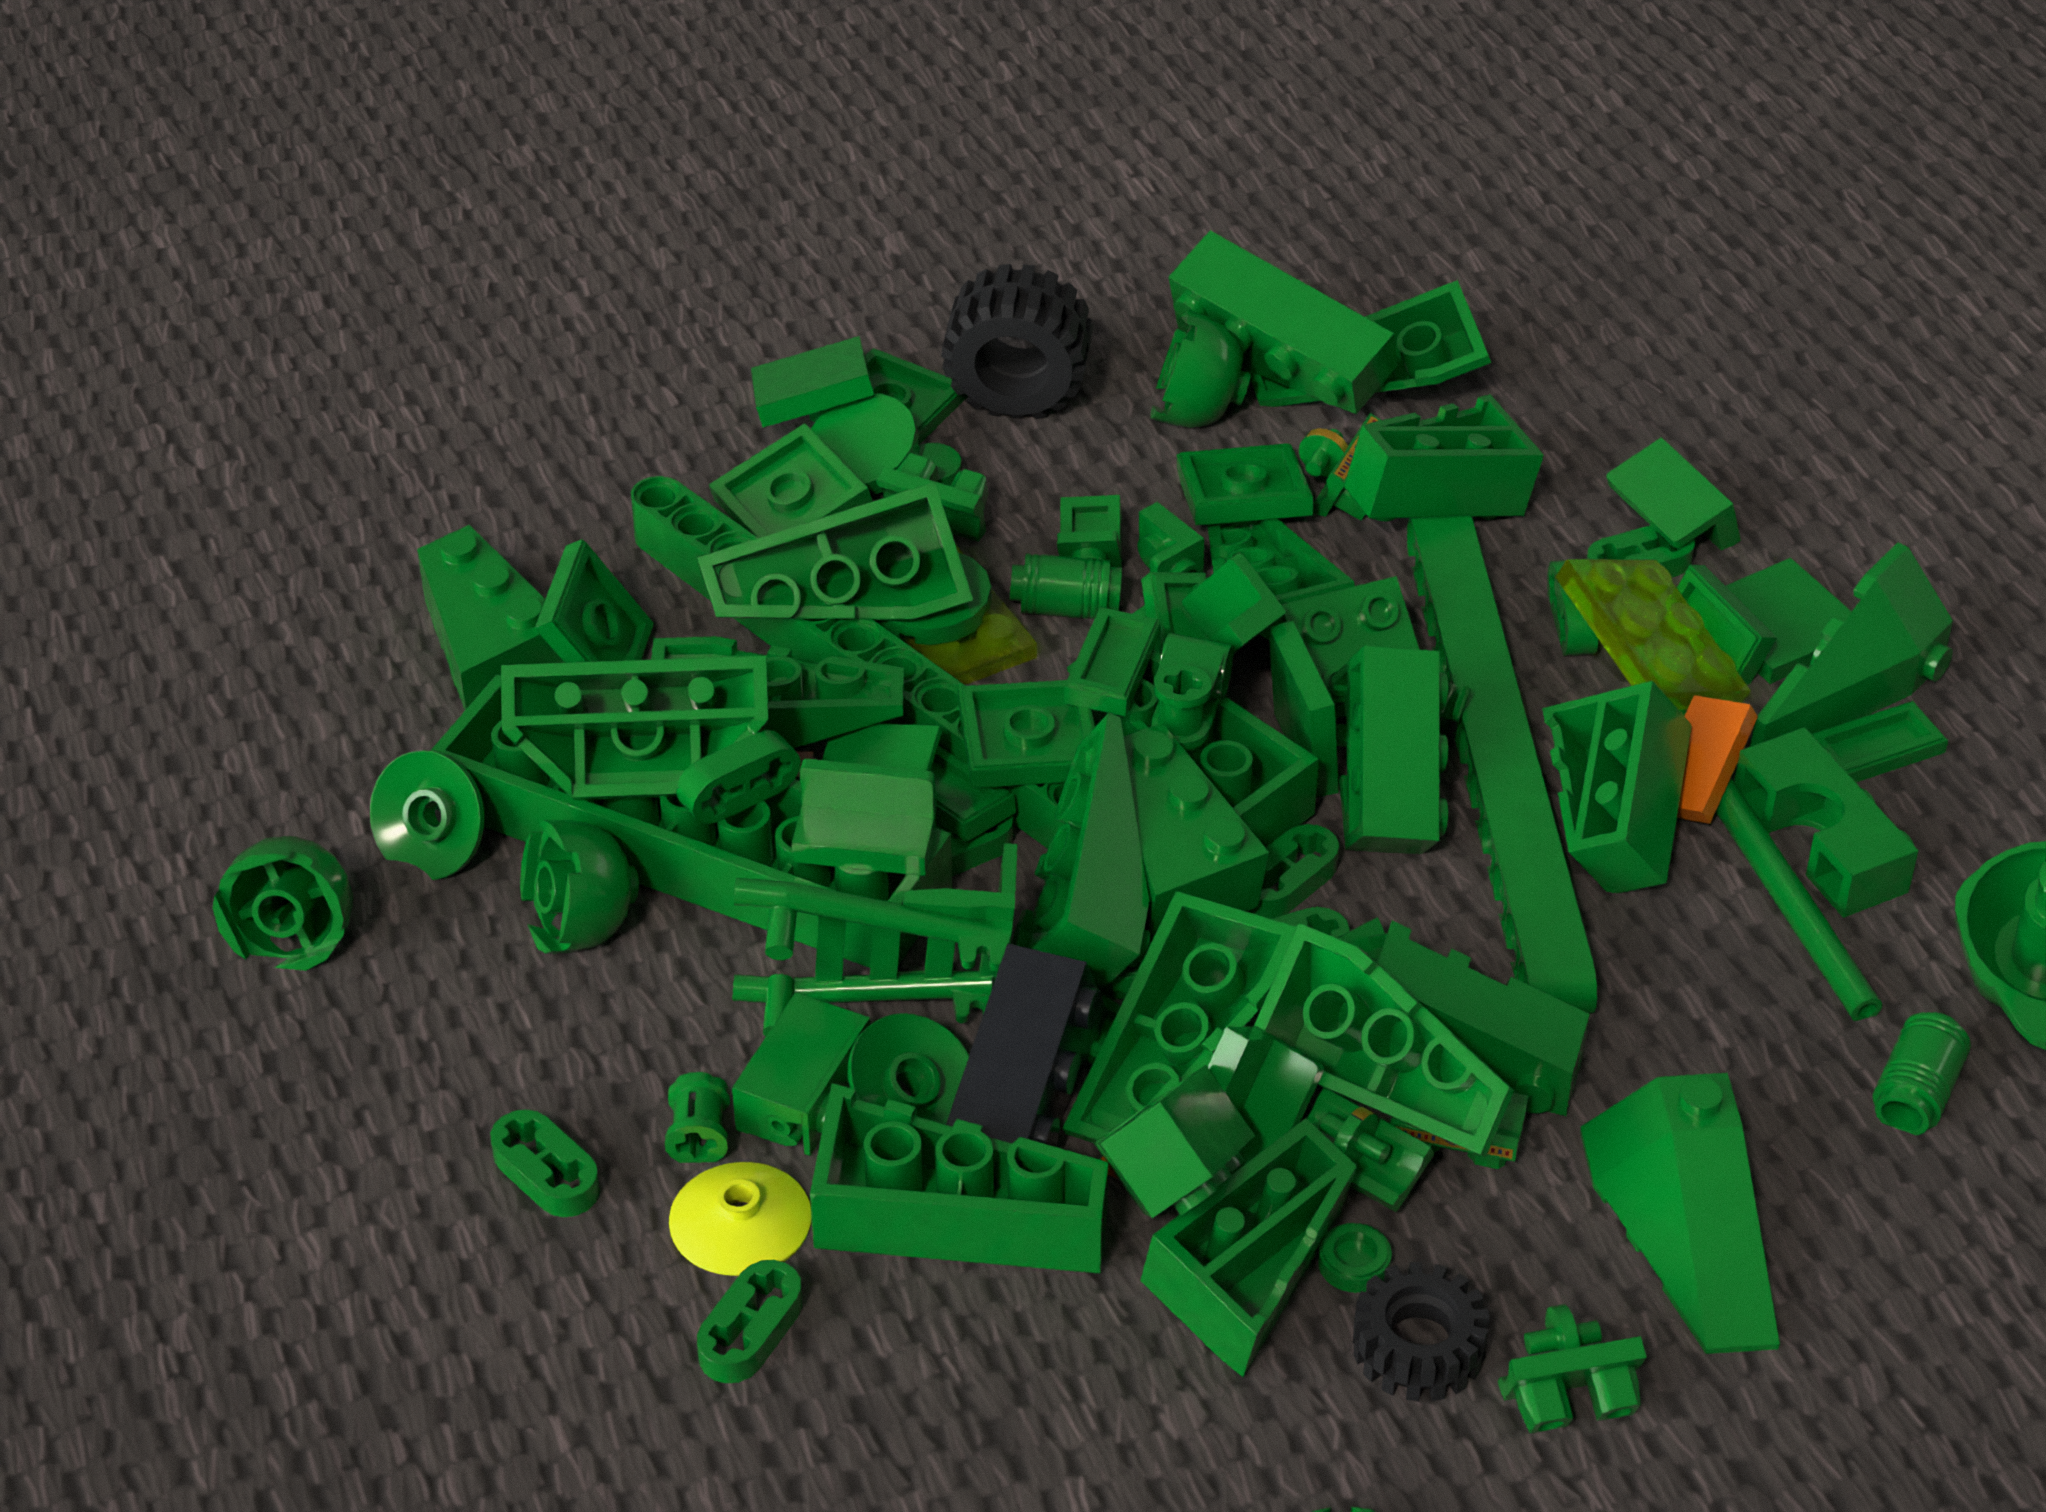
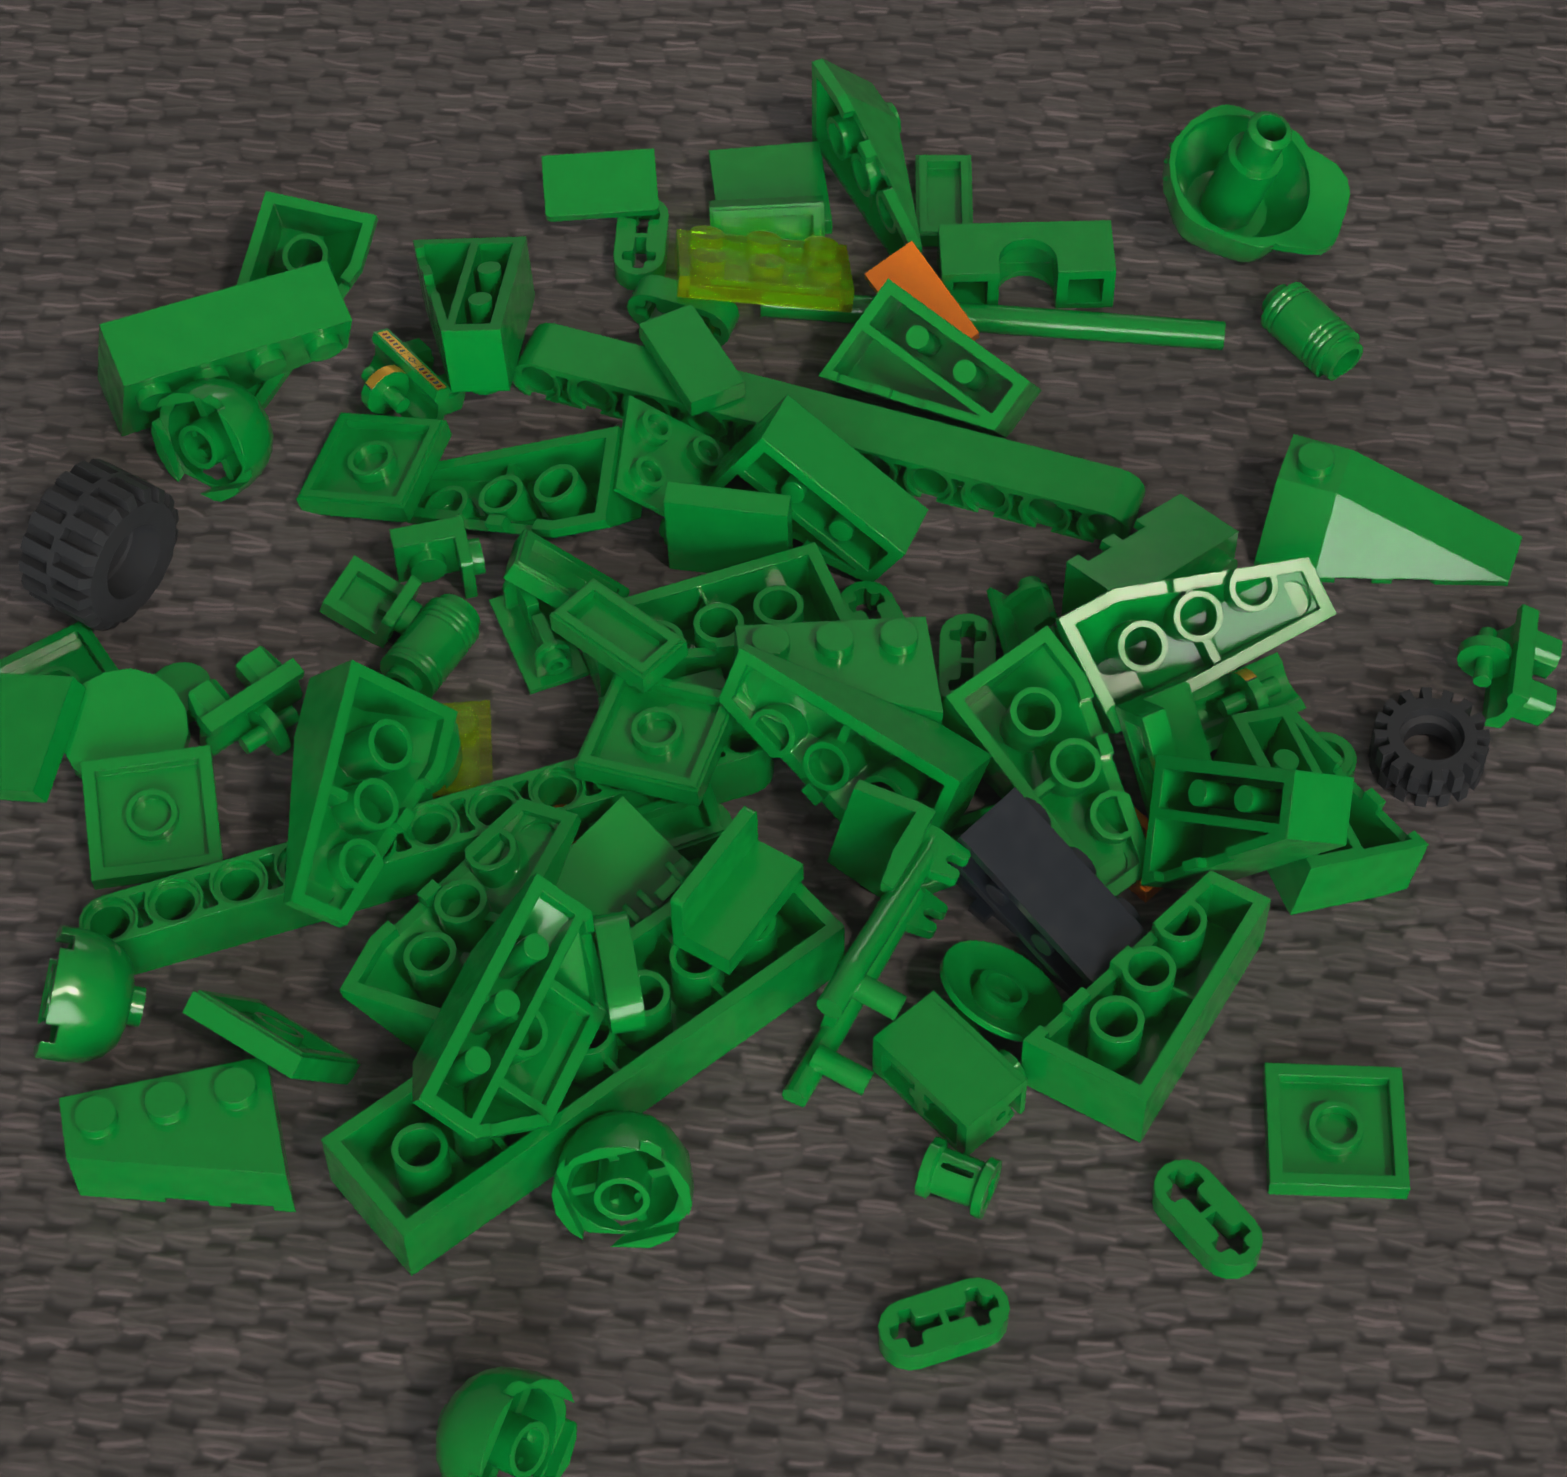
camera: 65 degrees left, 10 degrees up
(406, 819) = (475, 1285): green dish -> none
(583, 503) = (87, 997): none -> green cylinder
(732, 1237) = (1070, 1215): neon yellow dish -> none
(905, 1395) = (1335, 1131): none -> green tile
(1190, 686) = (697, 589): green piece -> none
(1233, 604) = (621, 530): green panel -> none
(1488, 613) = (691, 360): none -> green tile

